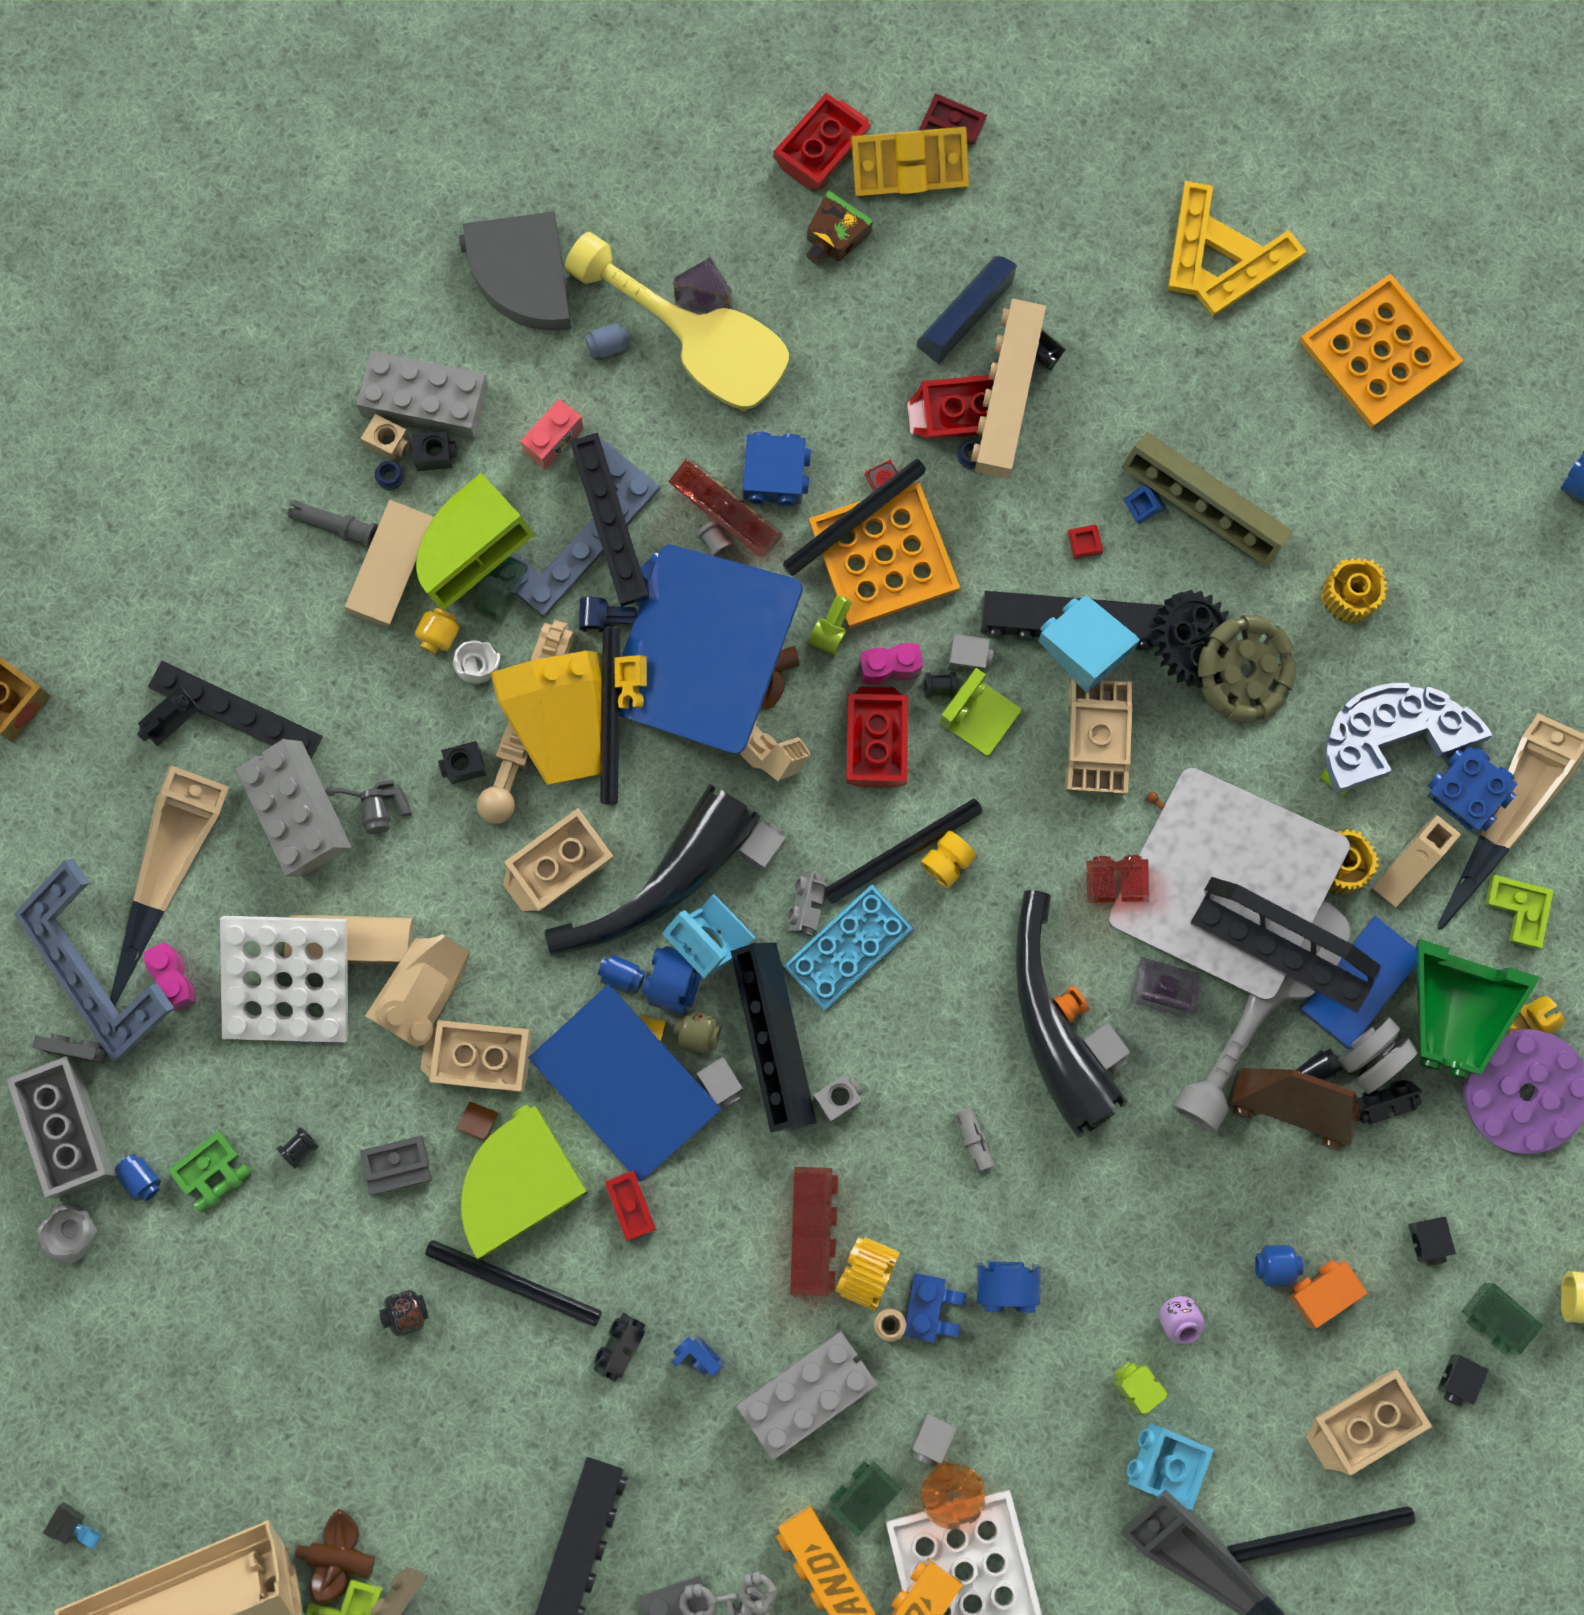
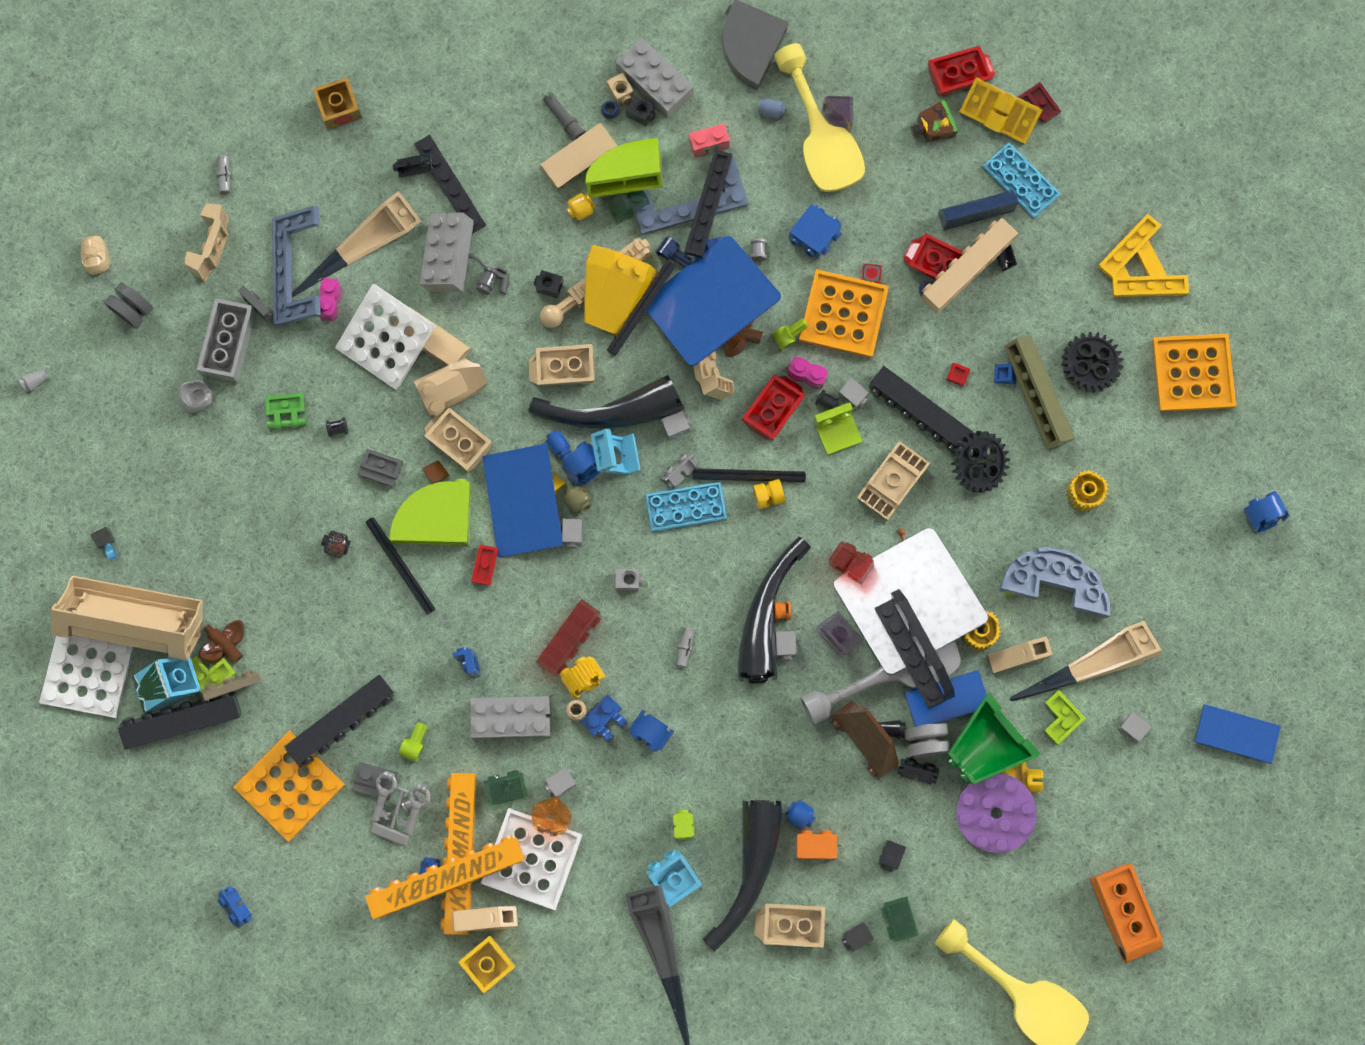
camera: 35 degrees right, 0 degrees up
(138, 1178) = (248, 391): blue brick -> none
(465, 661) = (584, 234): white hair -> none
(610, 1359) = (425, 635): black hinge -> none
(629, 676) = (664, 293): yellow plate -> none
(698, 1526) = (411, 747): none -> lime axle
(725, 507) = (775, 236): clear red brick -> none
(773, 1037) = (615, 526): black brick -> none
(854, 517) = (840, 283): black axle -> none
(986, 232) = (1017, 174): none -> medium azure tile
(1087, 642) = (918, 426): medium azure slope -> none
(1181, 1320) = (729, 808): lavender head -> none
(1234, 395) = (1090, 378): none -> black gear
(1251, 1337) = (760, 837): none -> black brick
(1263, 668) = (1006, 503): olive plate -> none
(1322, 1534) = (729, 965): black axle -> none
(1472, 789) = (1078, 637): blue brick -> none

